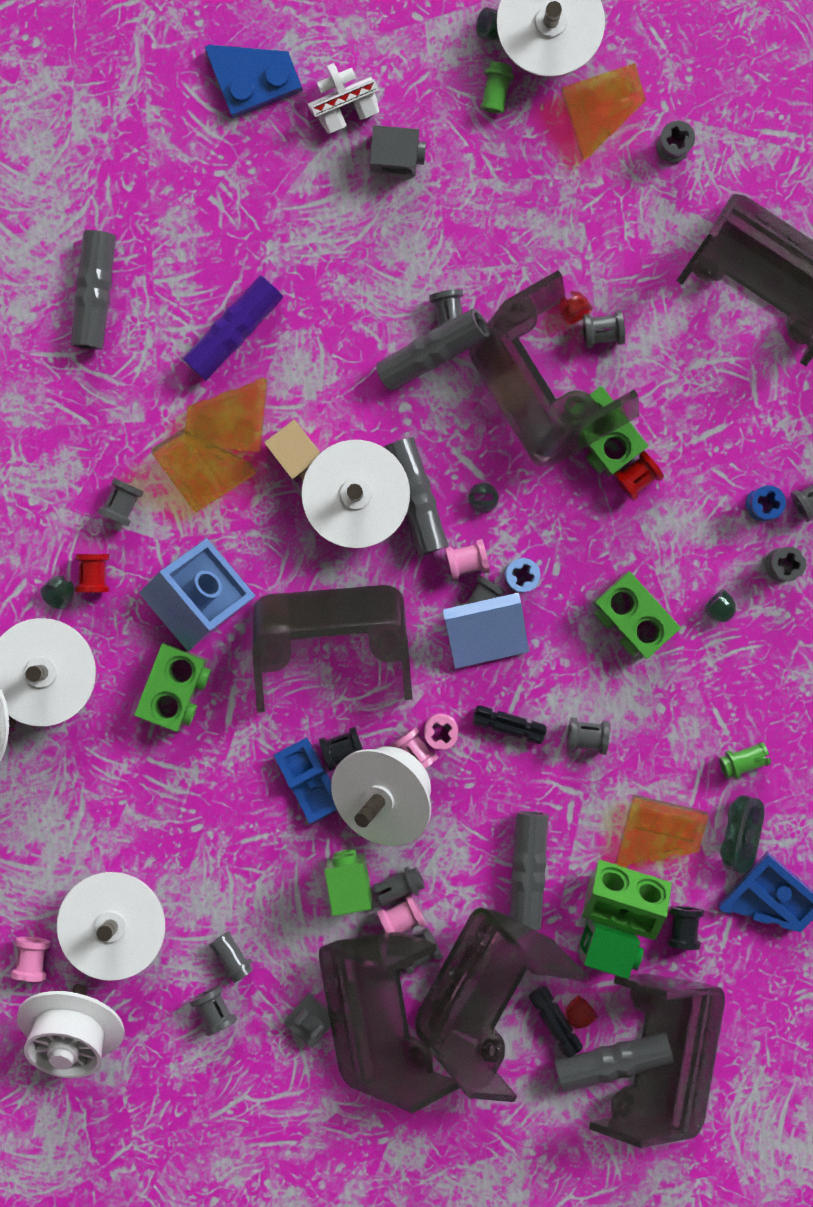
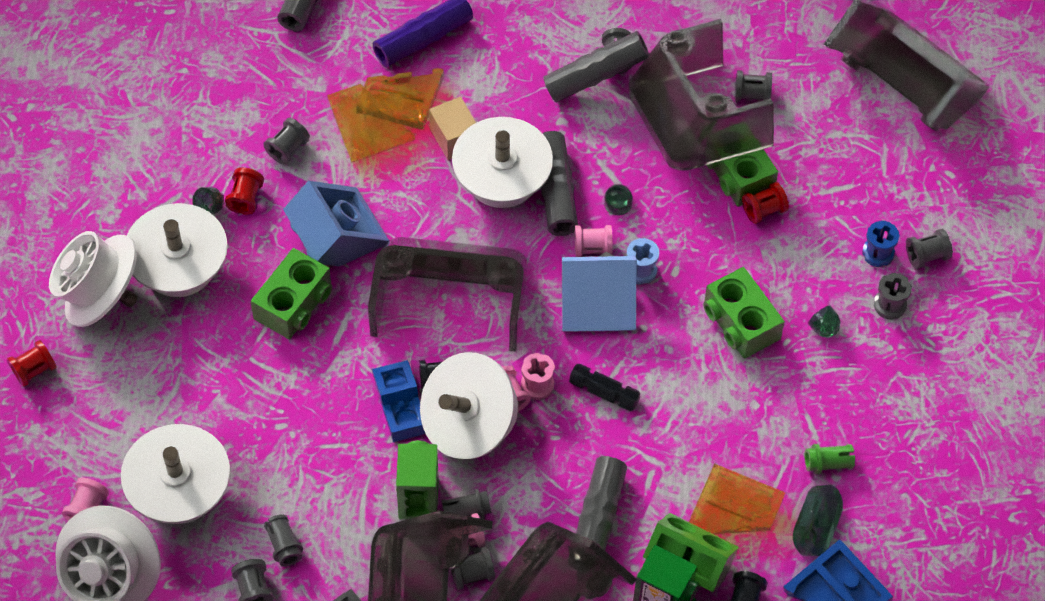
camera: 10 degrees right, 30 degrees down
(574, 308) = (734, 63): clear red hinge -> none
(588, 736) = (679, 407): dark grey bush -> none

